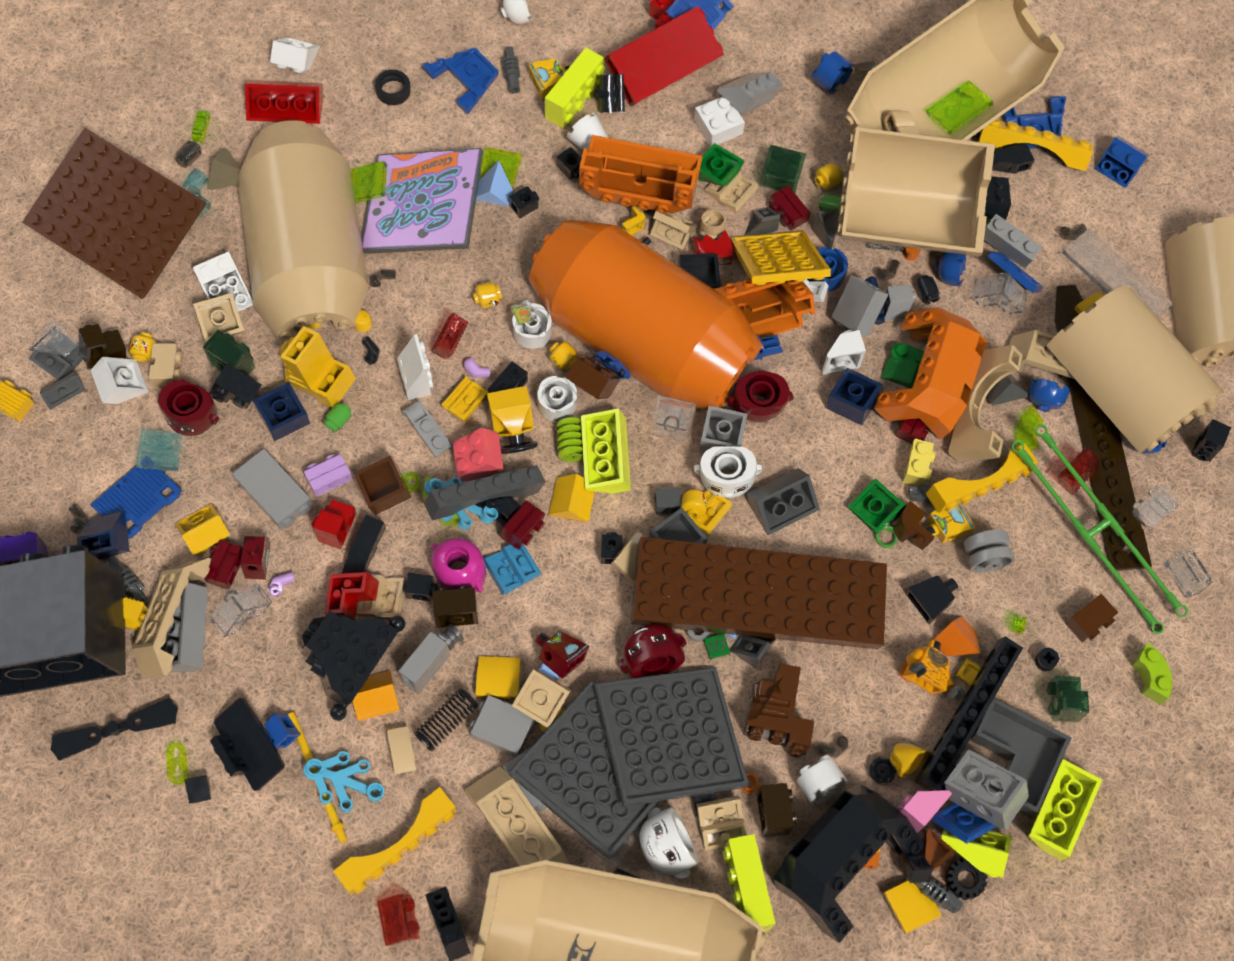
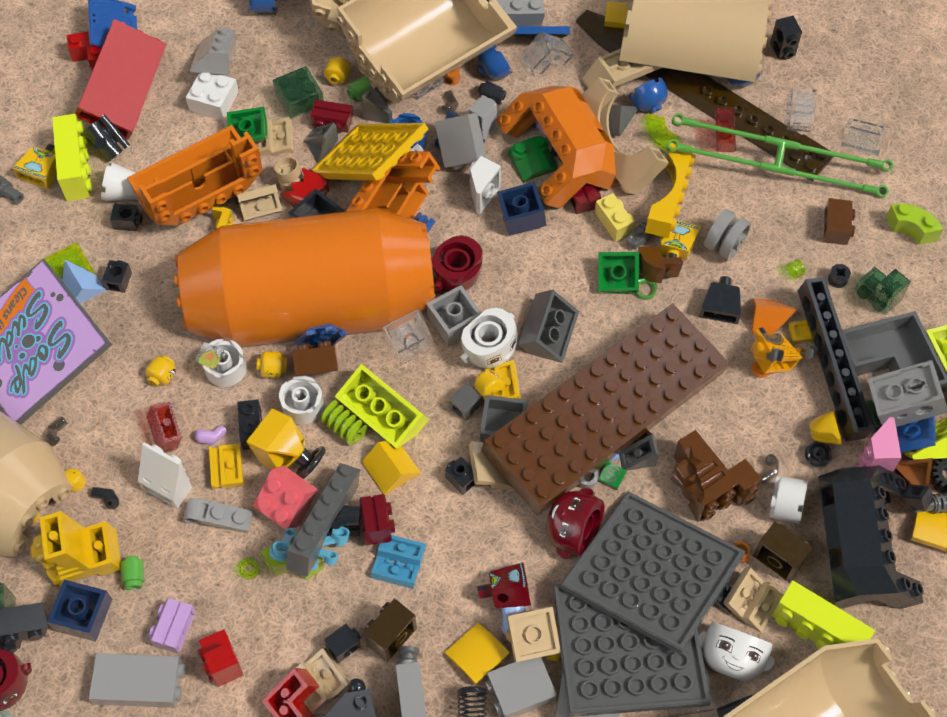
camera: 40 degrees left, 5 degrees down
(364, 545) = (263, 654): black slope -> none
(382, 485) = (230, 590): reddish brown piece -> none
(458, 550) = (351, 581): dark pink piece -> none

